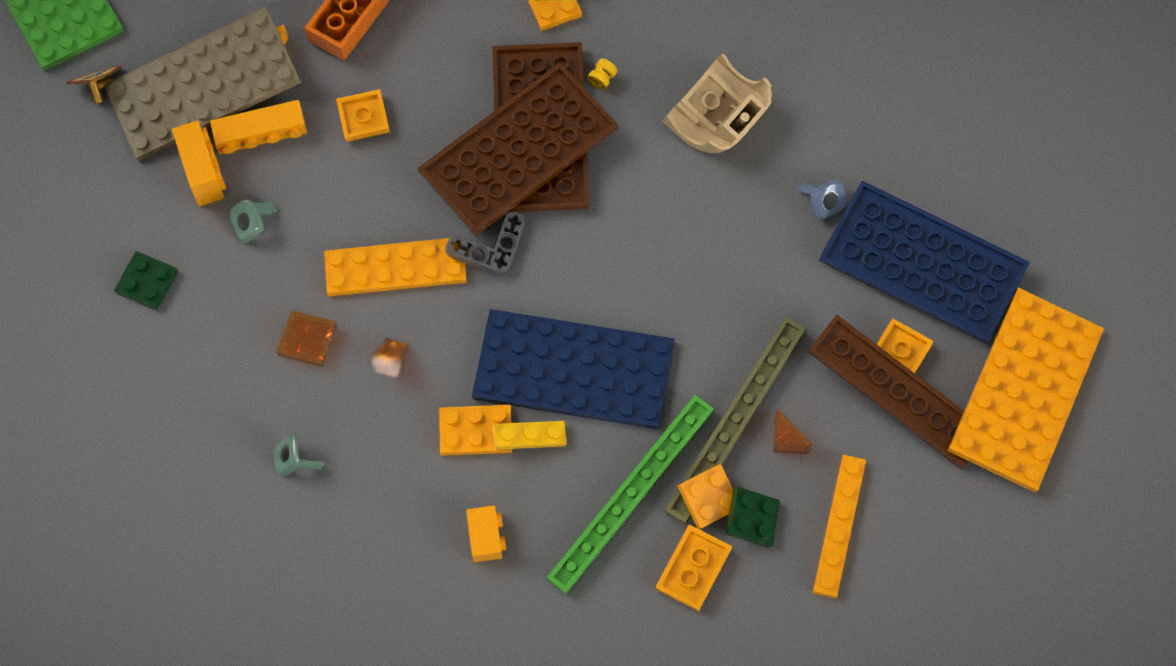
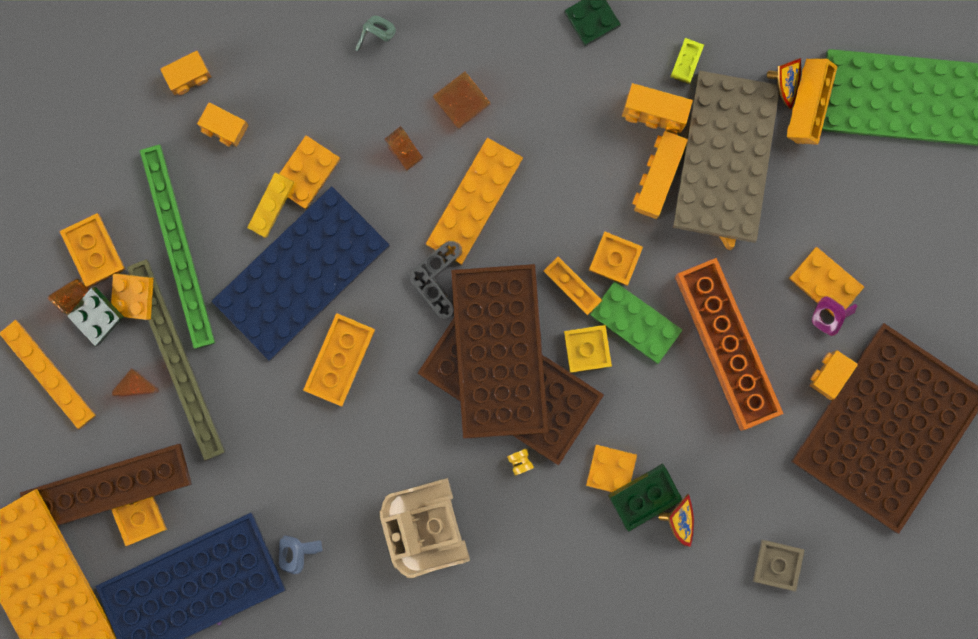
camera: 120 degrees right, 15 degrees up
(102, 47) = (812, 101): none -> light orange brick
(133, 173) = (687, 60): none -> neon yellow plate
(253, 211) = (588, 122): sand green piece -> none
(408, 66) = (636, 322): none -> bright green plate
(413, 132) = (573, 285): none -> light orange plate
(458, 604) = (186, 73): none -> light orange brick
(461, 86) = (587, 349): none -> yellow plate
(627, 279) = (339, 359): none -> light orange plate
(752, 554) = (68, 296): none -> clear orange slope

